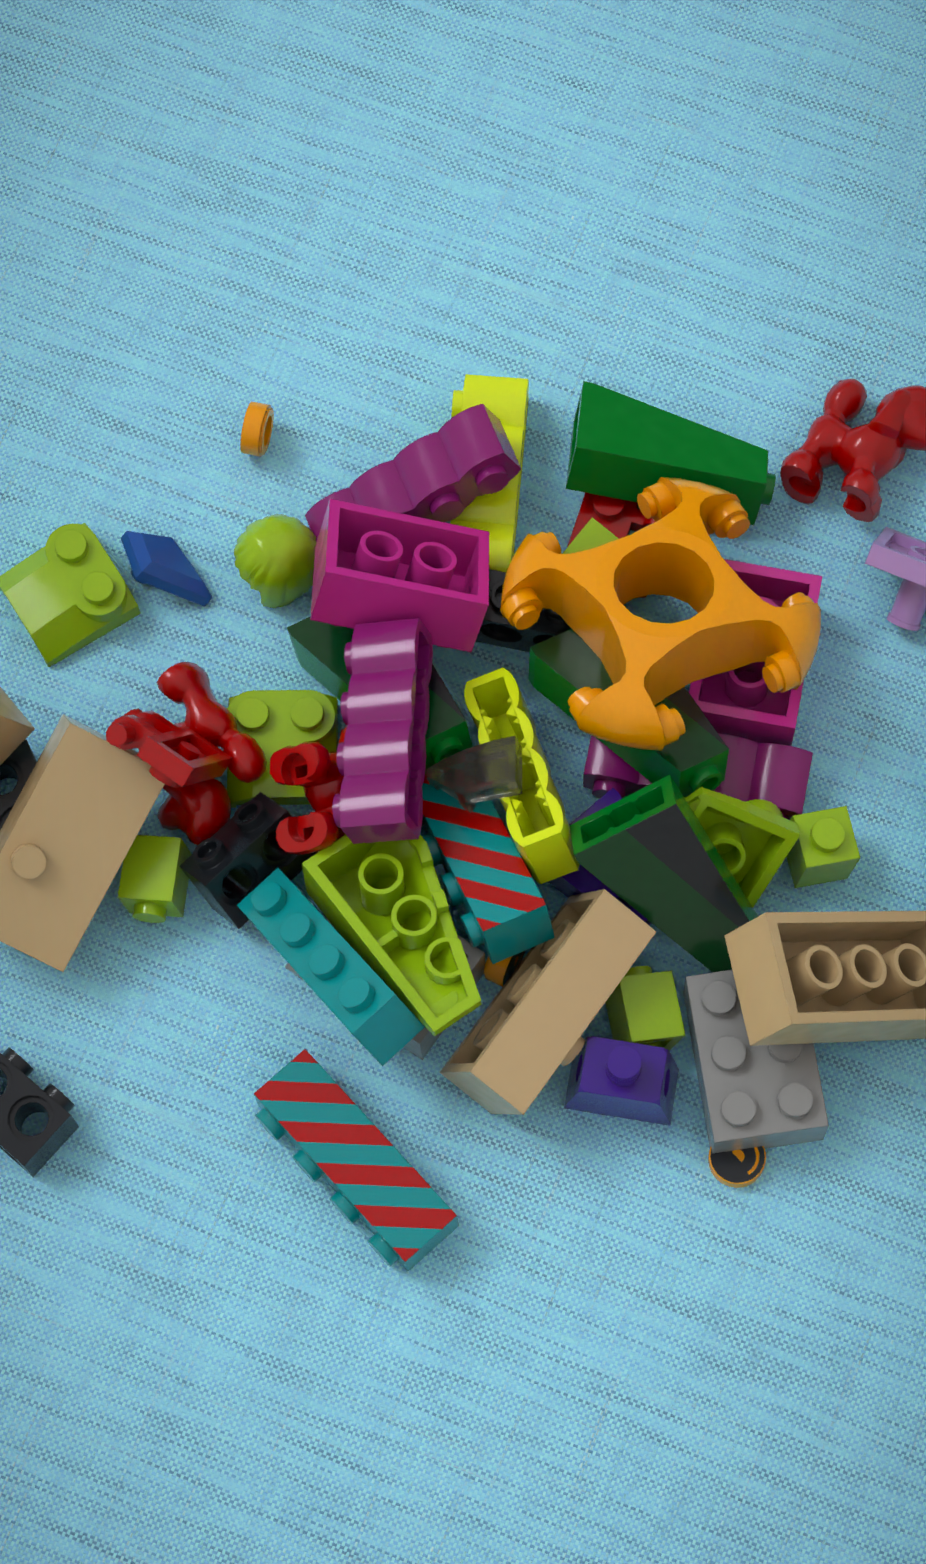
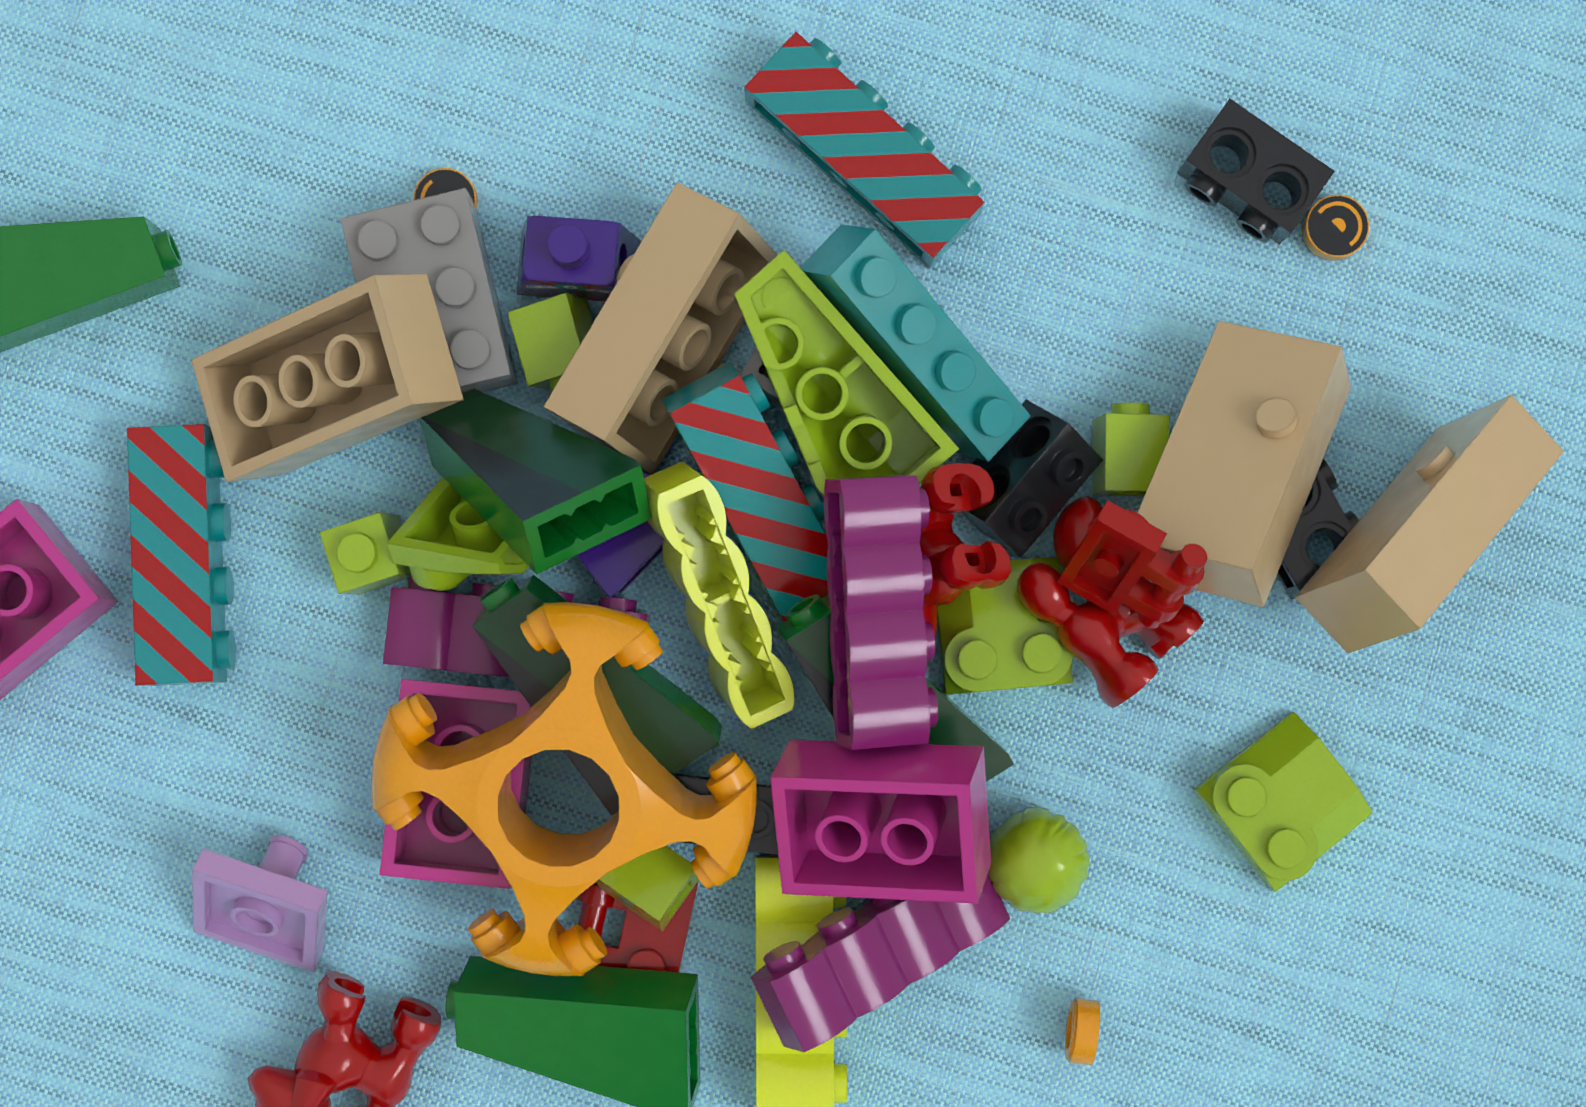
camera: 170 degrees right, 15 degrees up
(163, 565) = (1172, 842): blue piece -> none
(480, 772) = (760, 577): clear smoke slope -> none

